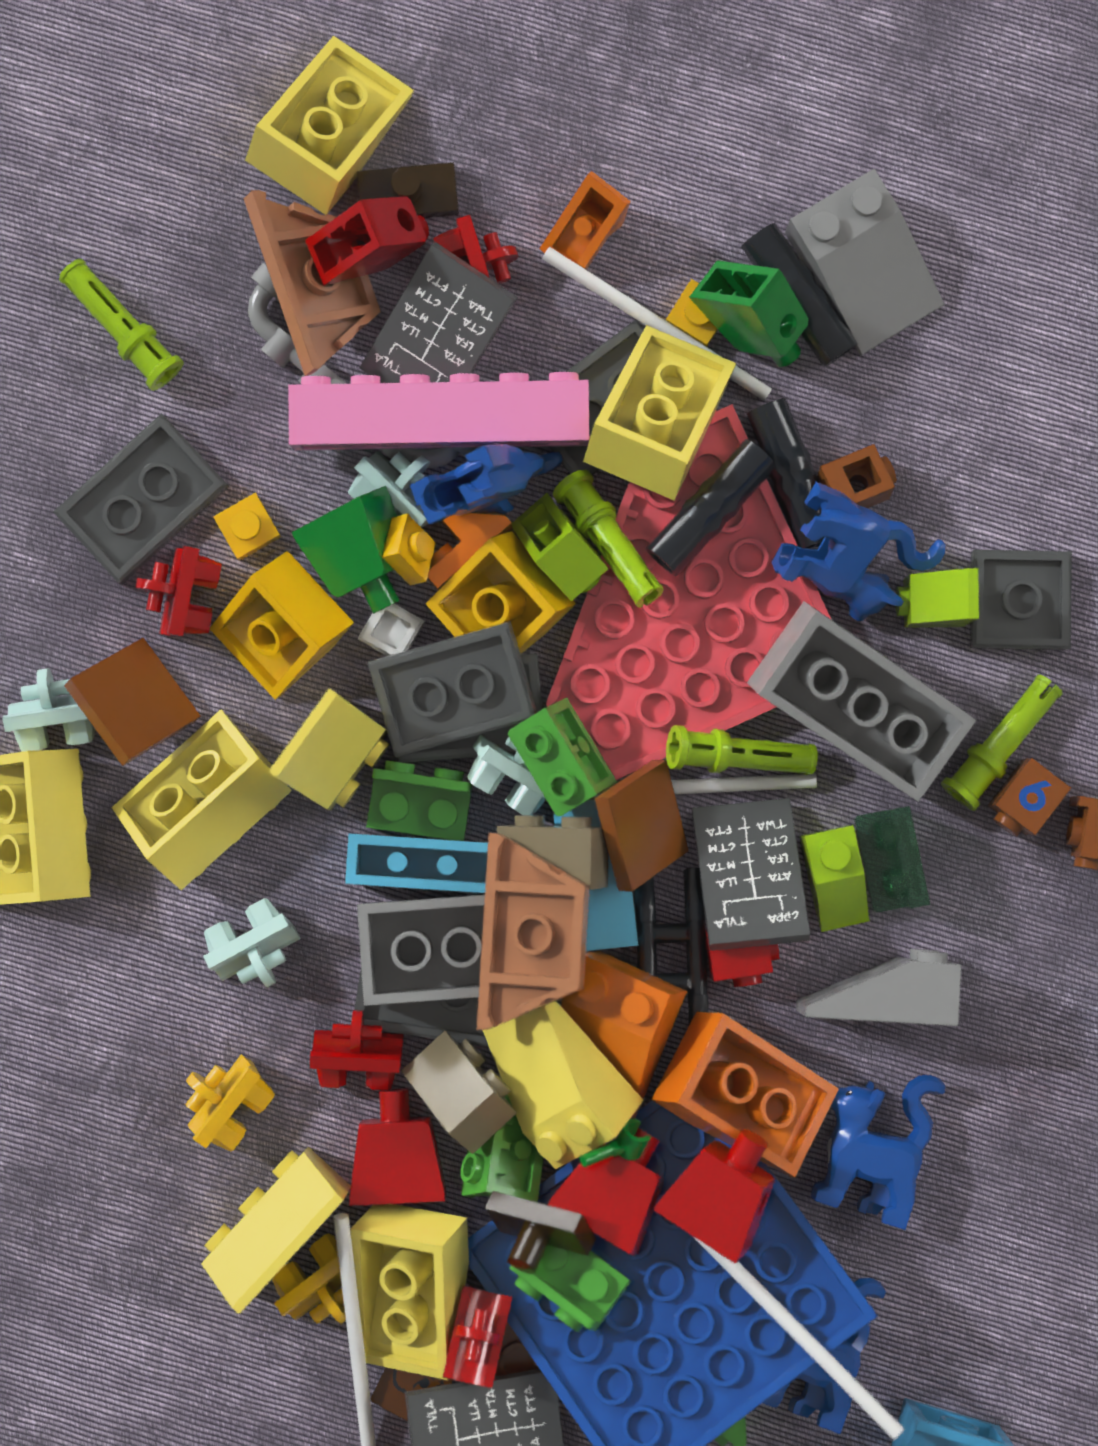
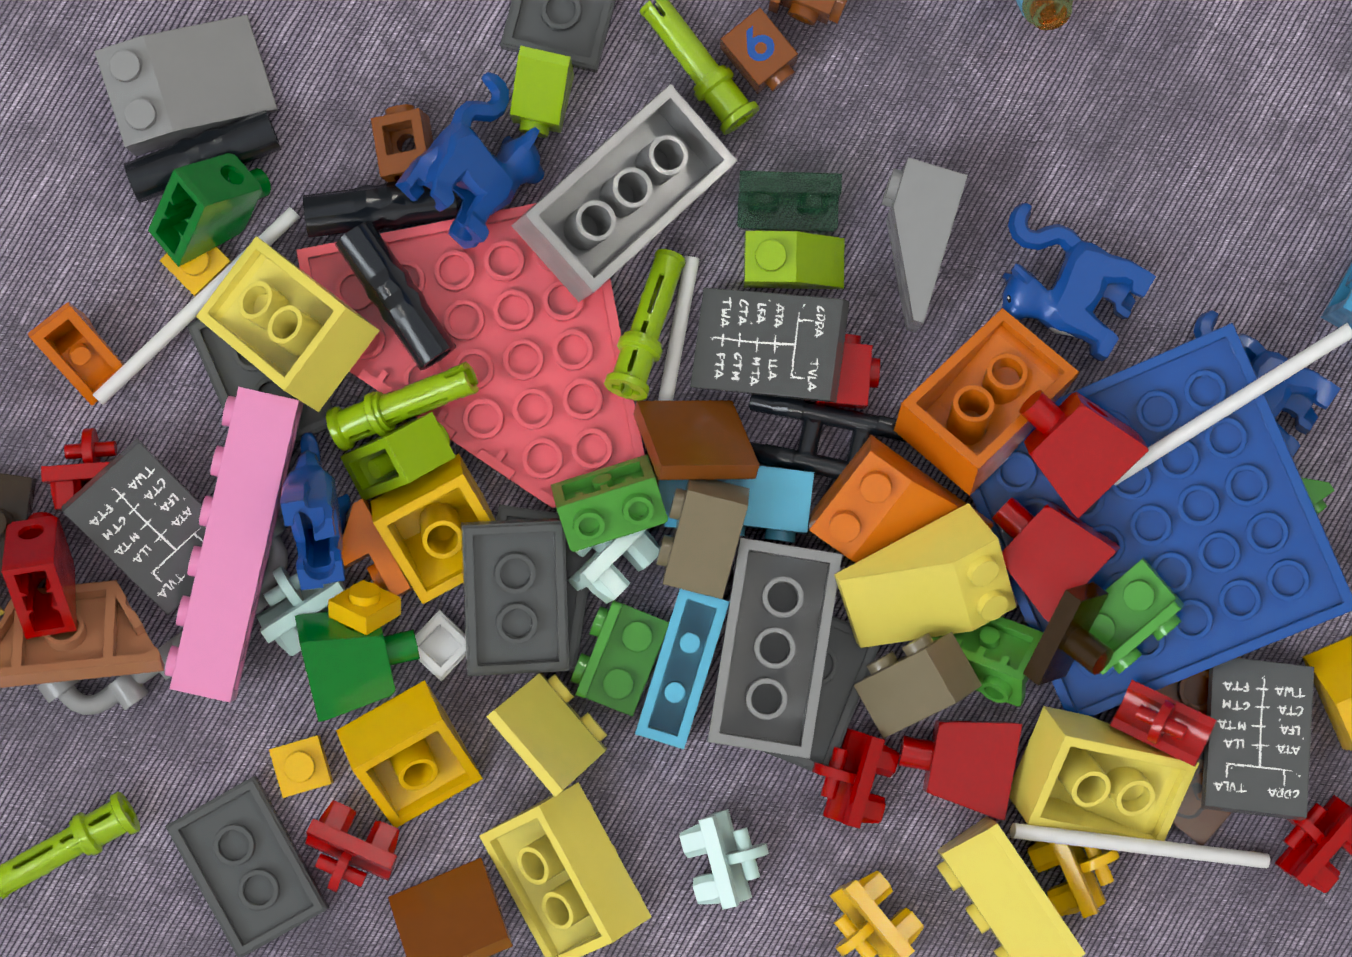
camera: 75 degrees left, 0 degrees up
(530, 933) = (777, 575): nougat wing -> none
(624, 1145) = (1008, 531): green hand -> none

